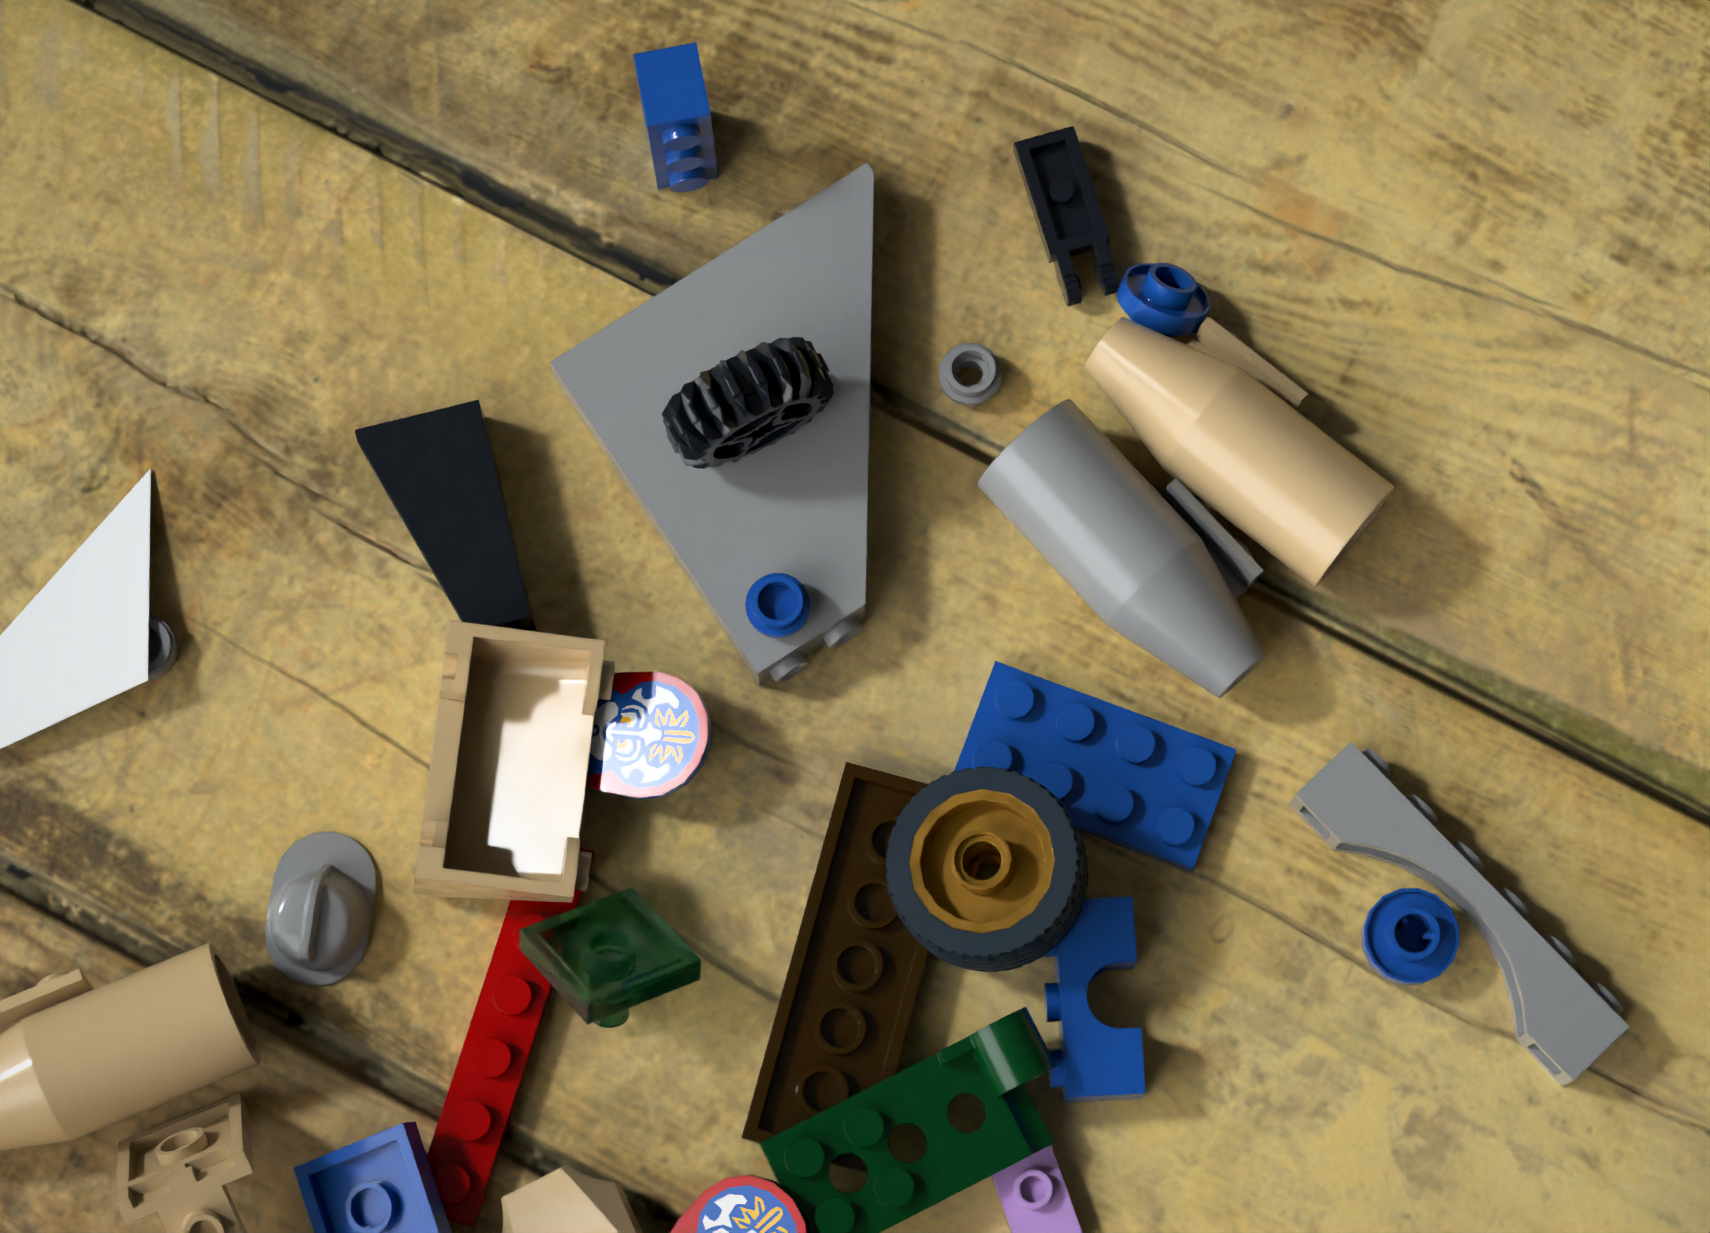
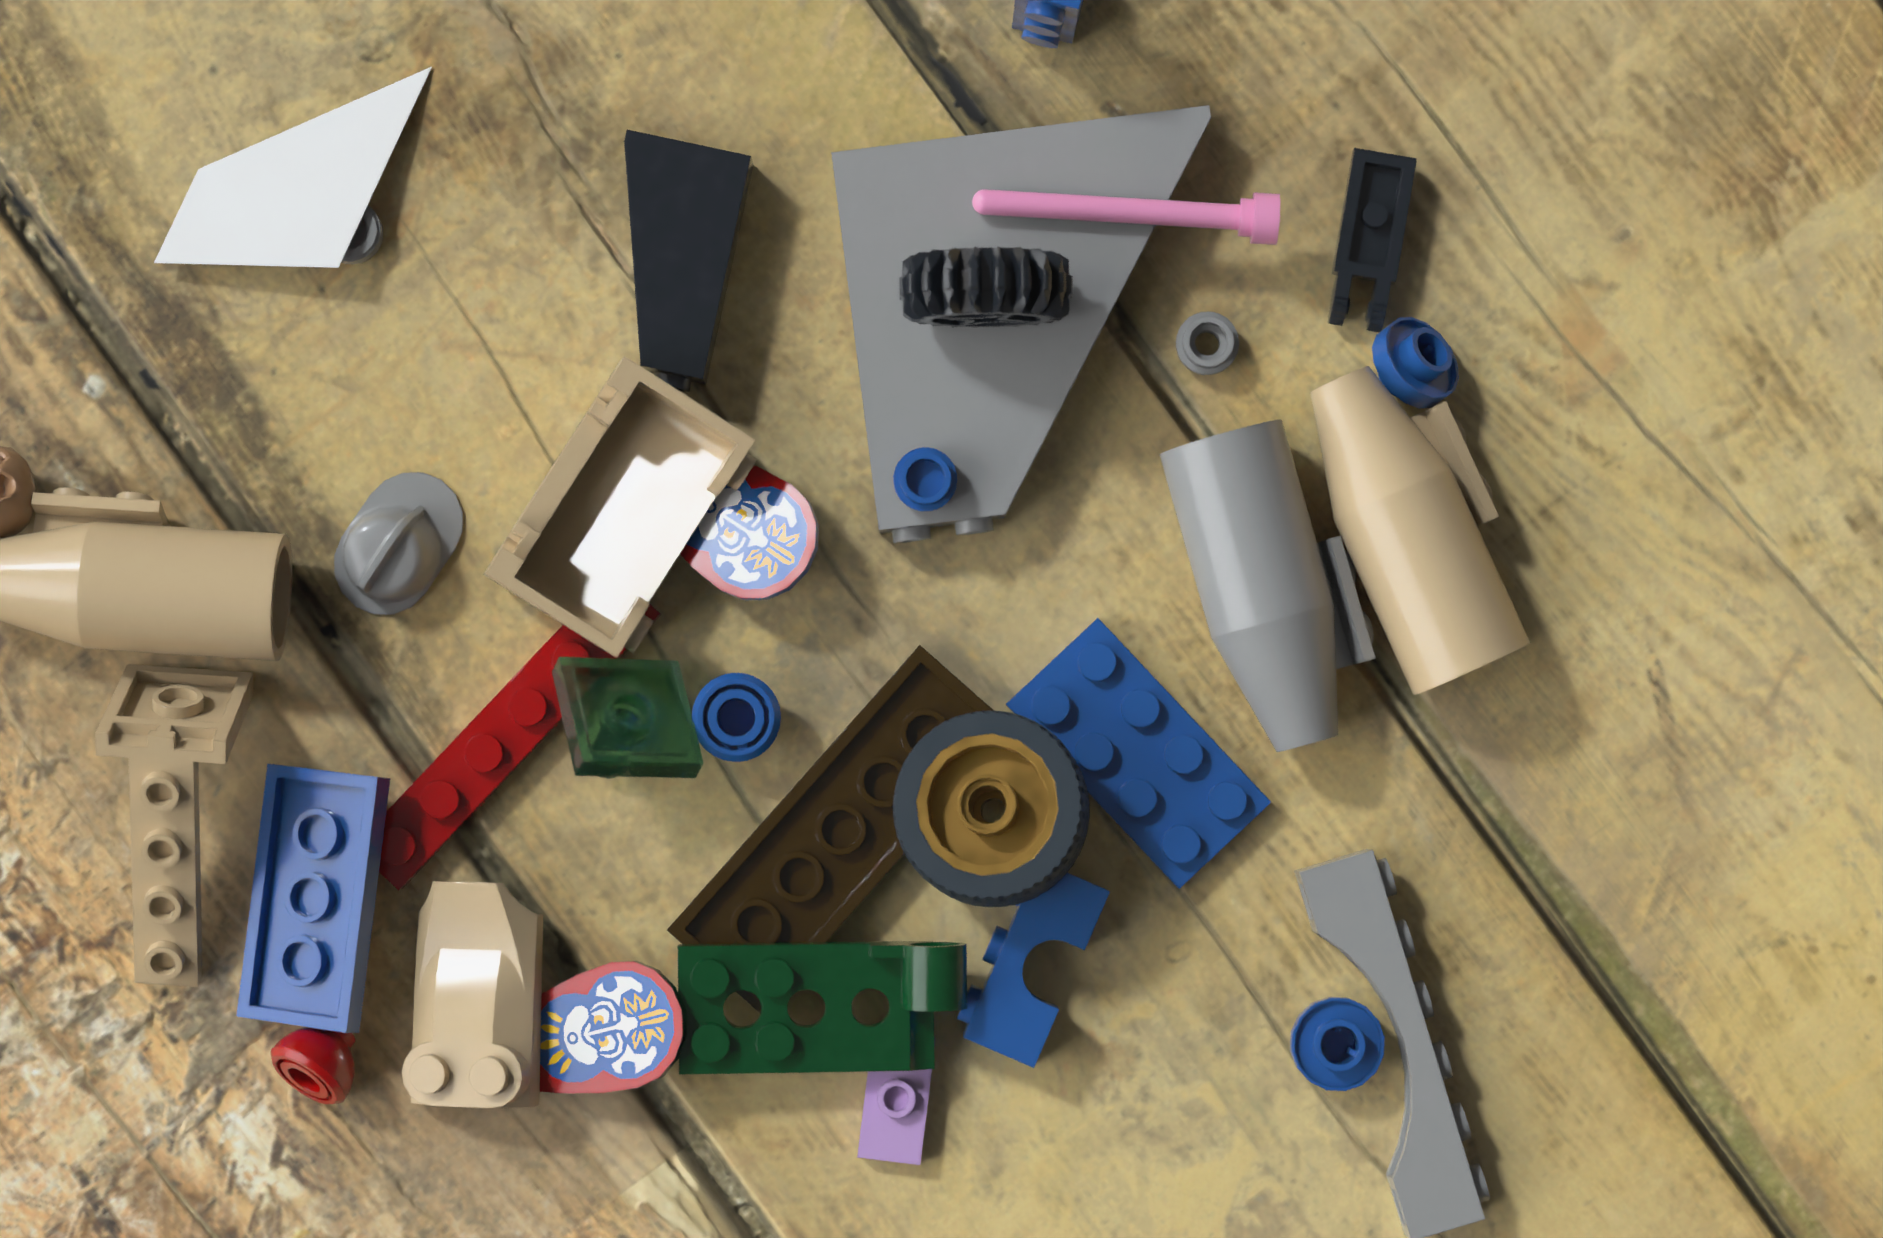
camera: 20 degrees right, 10 degrees up
(710, 906) = (736, 717): none -> blue brick
(955, 238) = (1252, 217): none -> bright pink piece

